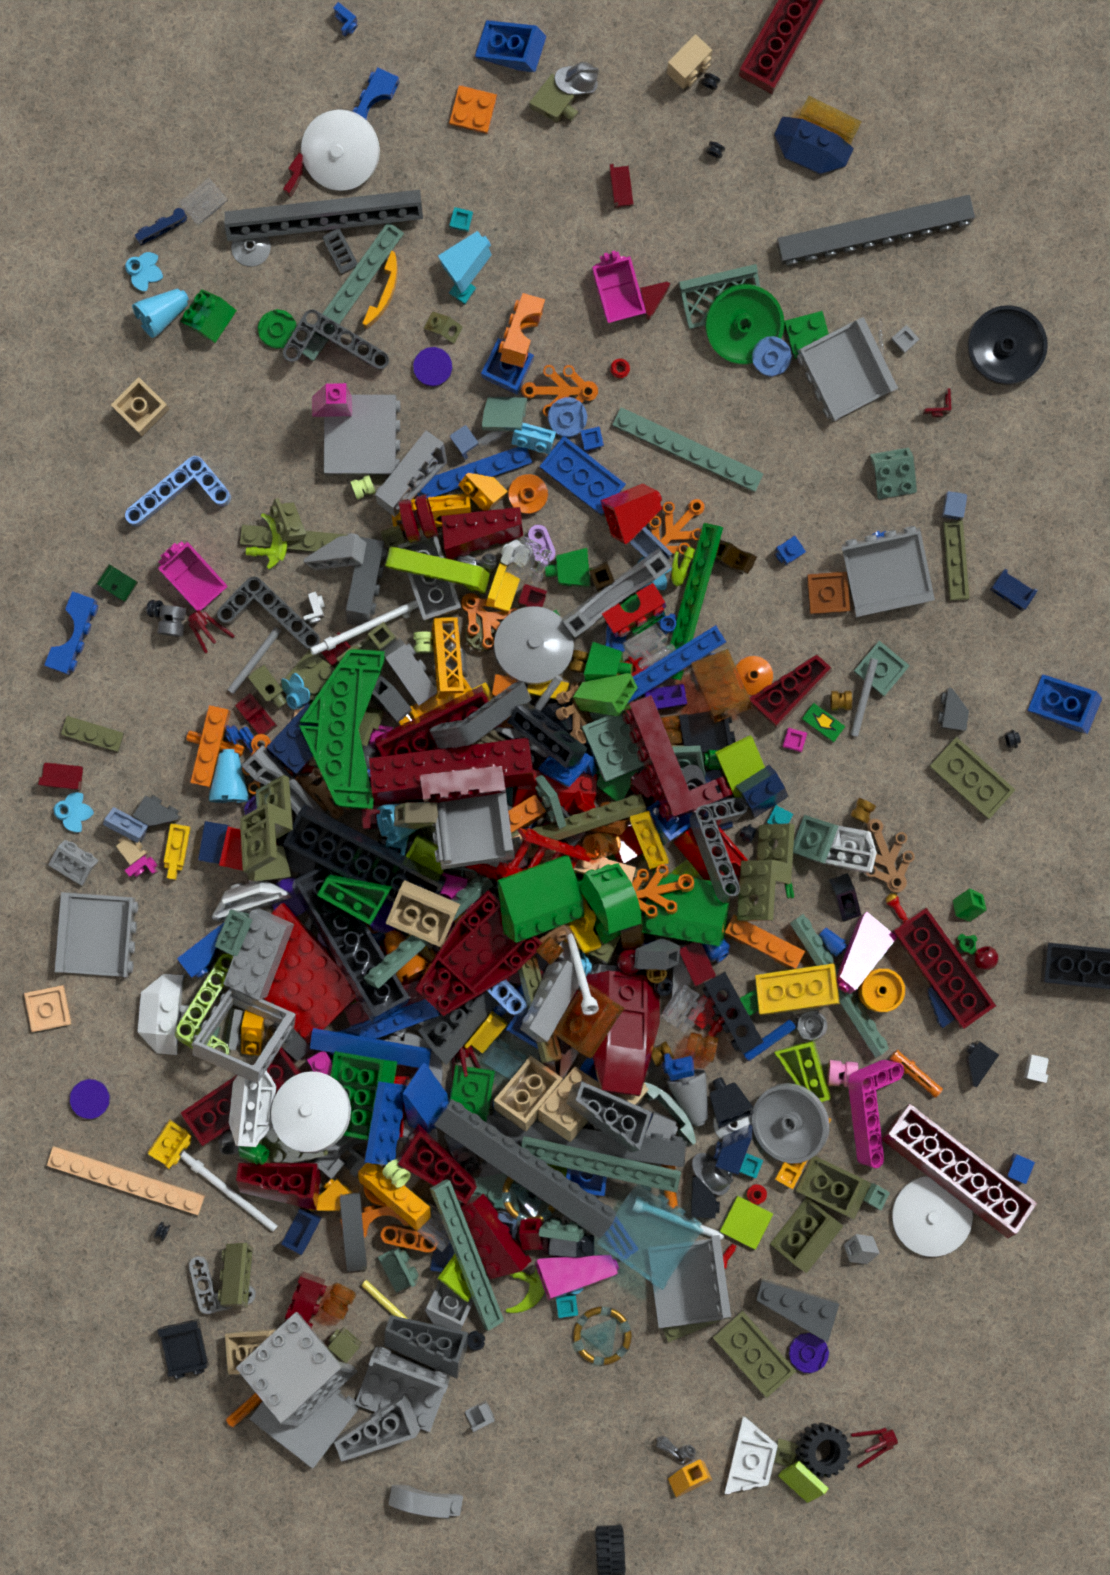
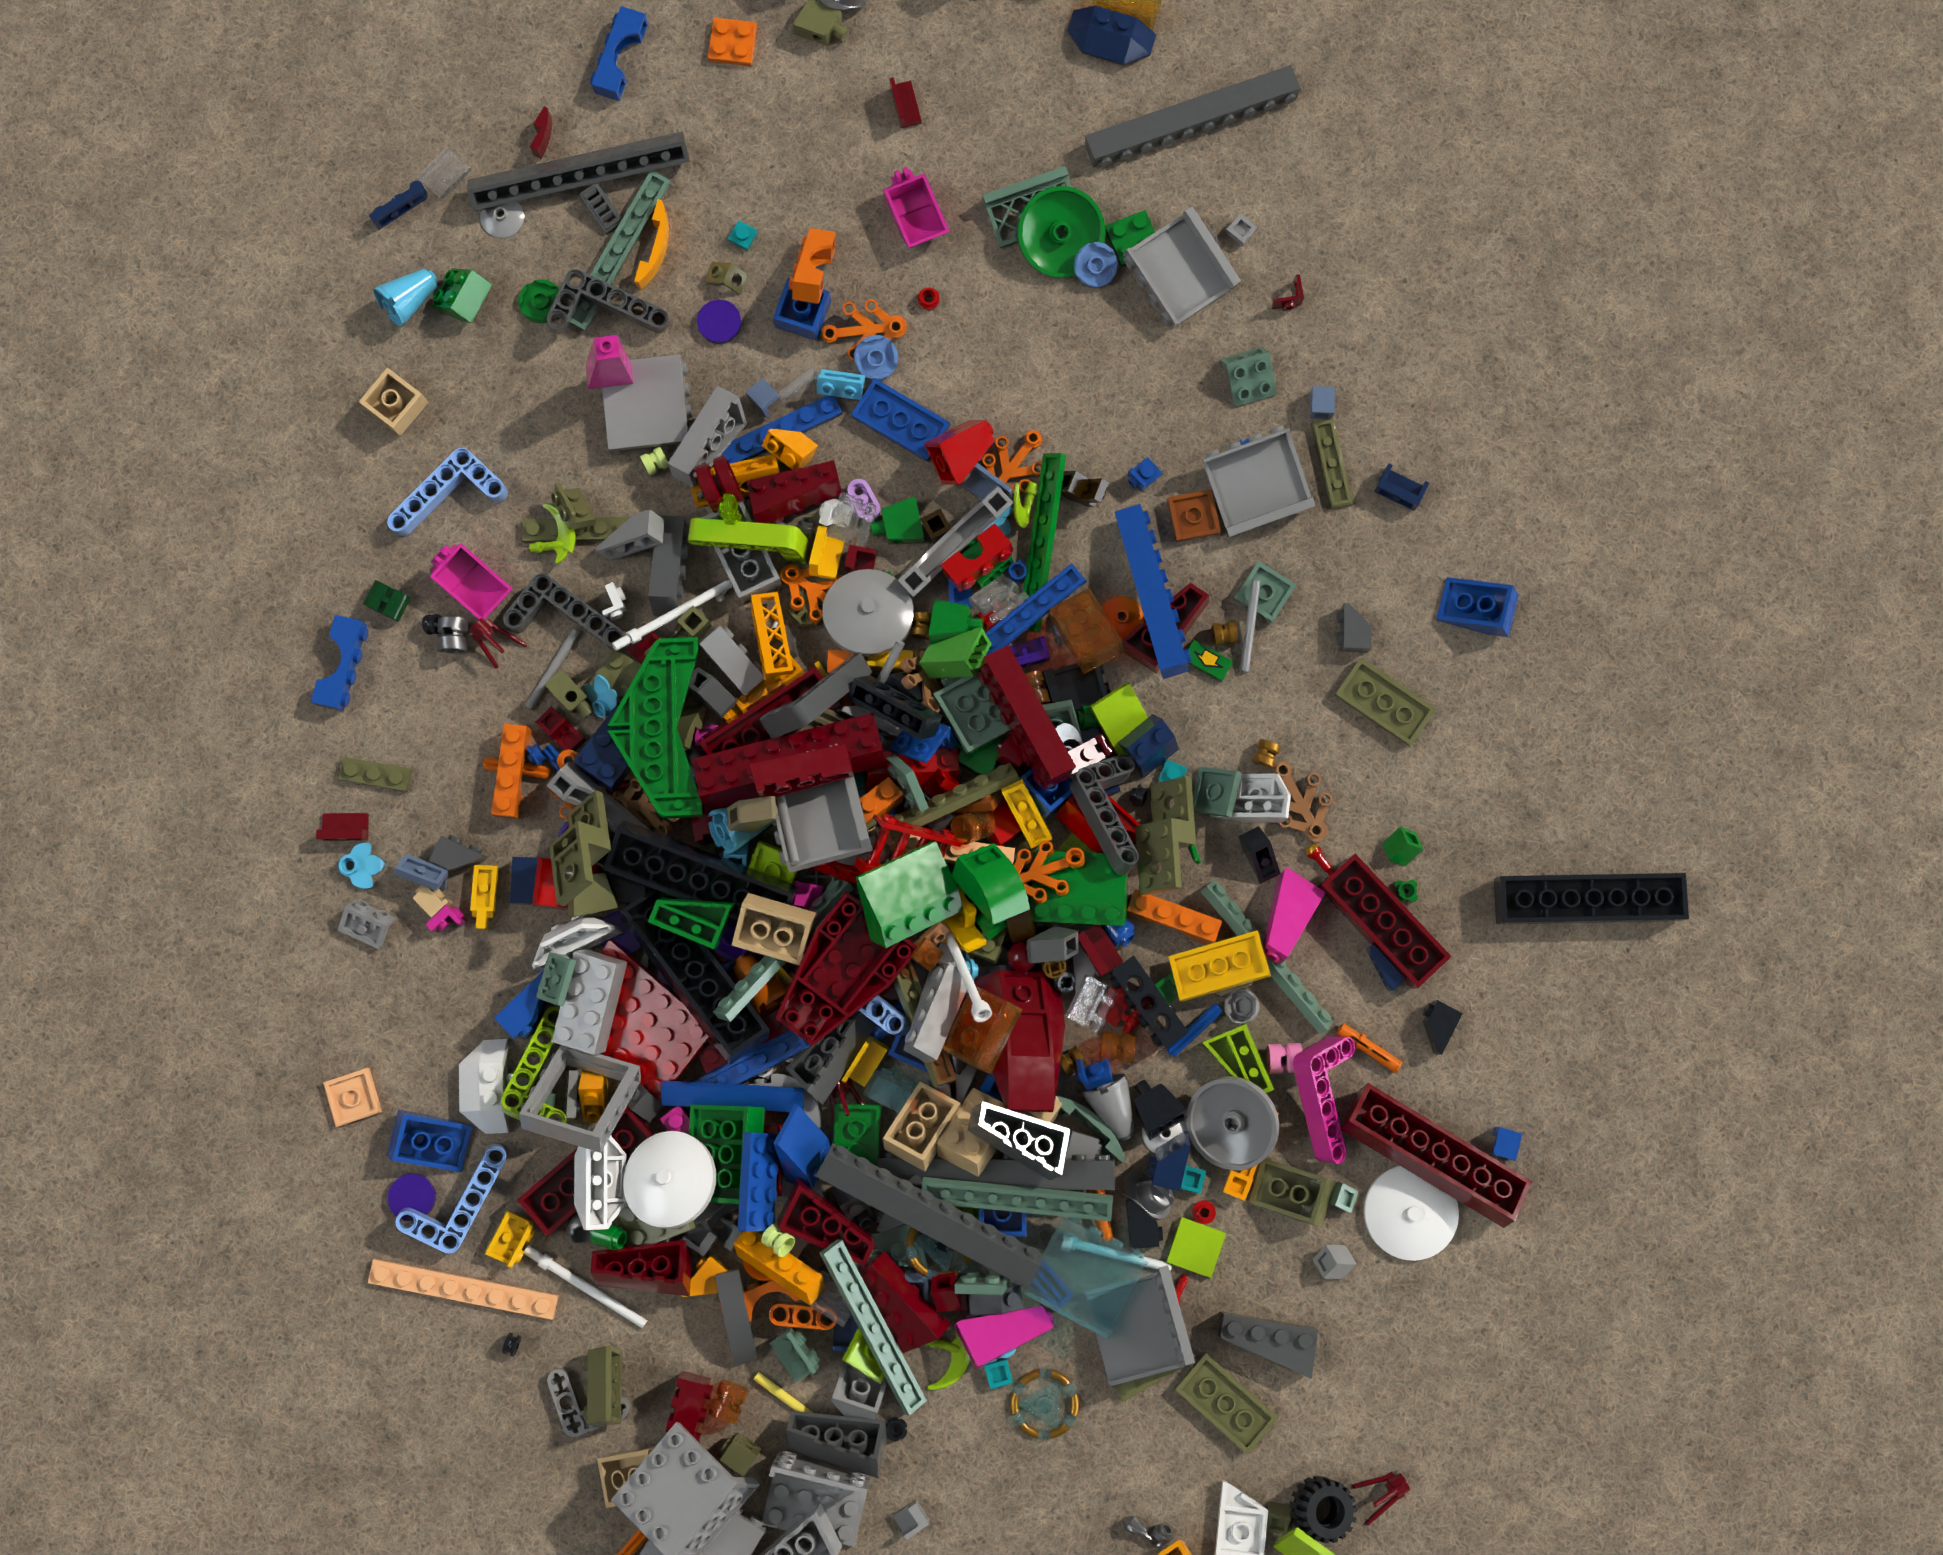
camera: 10 degrees left, 5 degrees down
(96, 934) = (399, 1004): light grey panel -> none
(109, 1053) = (429, 1141): none -> blue slope
(132, 1112) = (462, 1207): none -> light blue beam
(146, 272) = (387, 256): medium azure plate -> none
(184, 1348) = (551, 1482): black panel -> none
(228, 779) = (535, 806): medium azure cone -> none
(301, 1230) = (676, 1323): dark blue panel -> none
(340, 150) = (589, 98): white dish -> none
(393, 537) = (694, 509): olive plate -> none
(423, 642) = (742, 625): yellowish green wheel -> none
(424, 545) = (729, 509): none -> clear neon green plate
(461, 219) = (732, 159): teal plate -> none
(466, 259) = (742, 200): medium azure slope -> none
(504, 413) = (804, 361): sand green slope -> none
(524, 484) = (838, 436): orange dish -> none
(592, 438) = (906, 378): blue plate -> none
(652, 297) = (956, 216): dark red slope -> none
(687, 449) = (1015, 378): sand green plate -> none
(715, 149) = (1004, 52): black bush -> none
(782, 658) = (1152, 592): none -> blue brick
(794, 739) = (1178, 685): dark pink tile -> none
(804, 1348) = (1281, 1388): dark purple tile -> none
(806, 1235) = (1268, 1253): olive slope -> none
(833, 942) = (1253, 908): blue cone -> none
(881, 1002) = (1326, 946): light orange wheel -> none
(986, 958) = (1430, 904): dark red piece -> none
(1007, 345) = (1356, 221): black dish -> none
(1012, 739) = (1424, 653): black plate -> none
(1036, 1068) = (1506, 1024): white panel -> none

